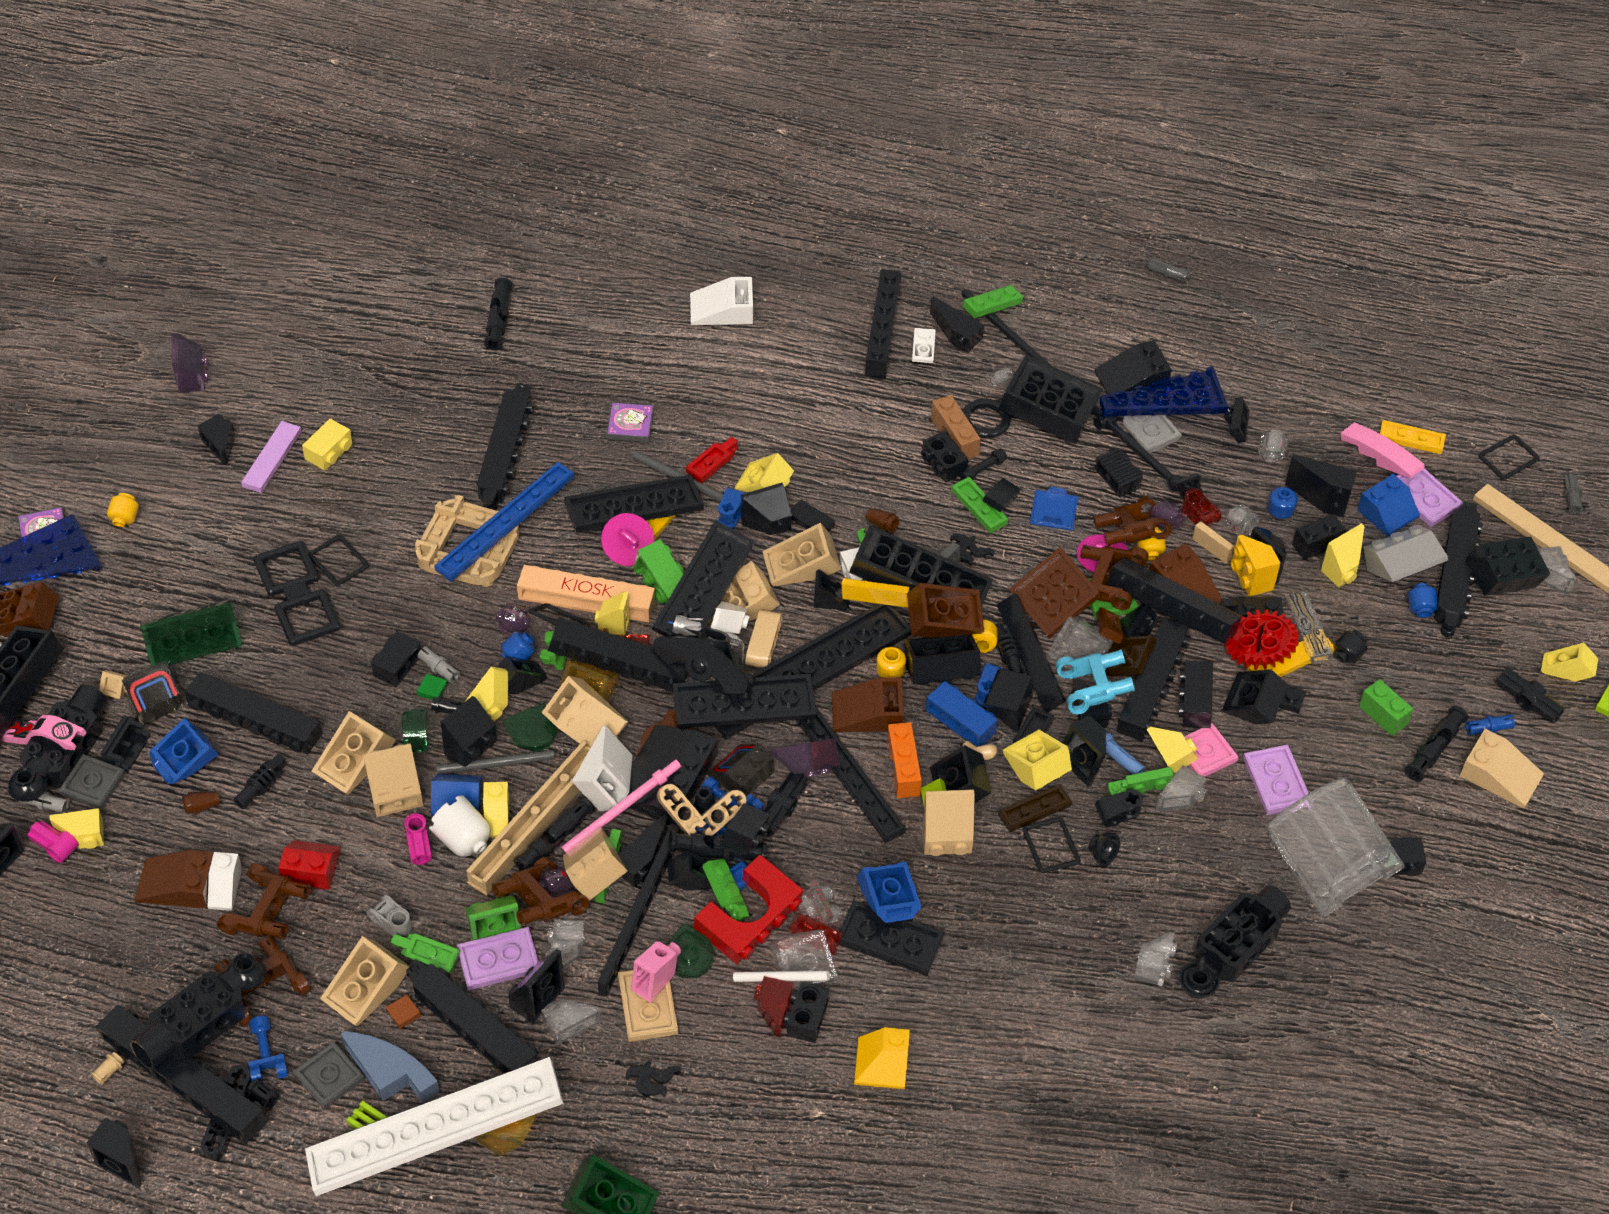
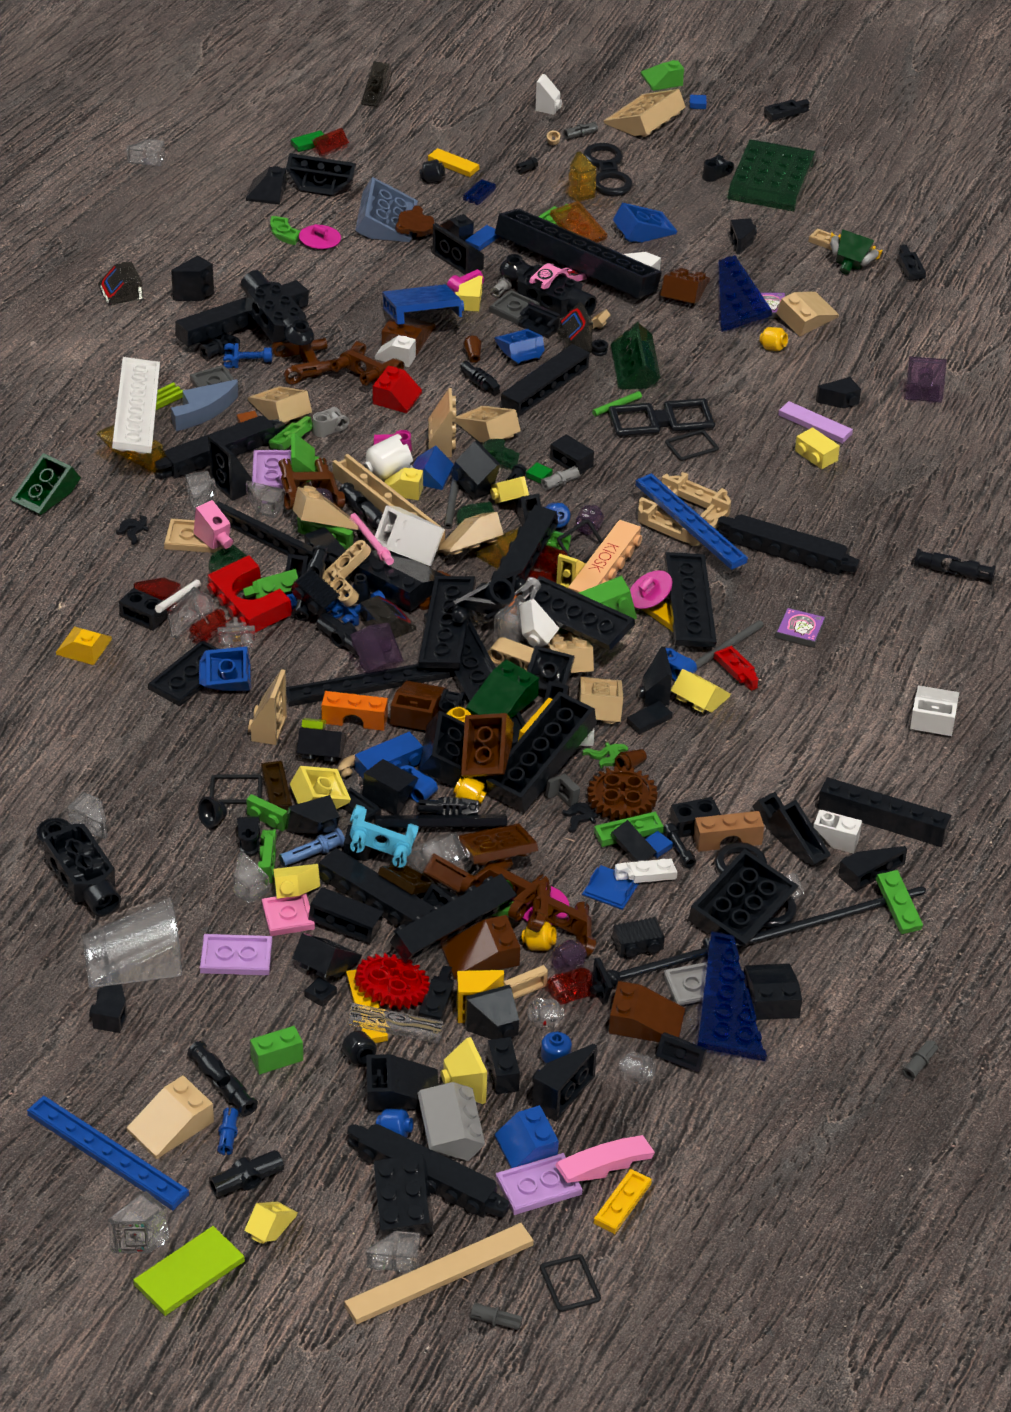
camera: 105 degrees right, 10 degrees down
(63, 487) = (805, 311): none -> tan slope
(133, 863) = (418, 299): none -> blue panel
(277, 640) = (622, 401): none -> bright green bar
(792, 599) = (550, 666): none -> black slope
(842, 628) = (505, 691): none -> dark green slope
(859, 675) = (451, 700): none -> black piece
(933, 383) = (792, 828): none -> black slope
(949, 511) = (622, 793): none -> reddish brown gear
(986, 481) = (659, 843): none -> blue tile
(1028, 481) = (646, 871): none -> white hinge
(1087, 792) = (267, 812): none -> bright green plate
(1209, 455) = (644, 1013): none -> reddish brown slope
(1379, 607) = (396, 1082): none -> black slope
(1559, 815) = (108, 1152): none -> blue tile

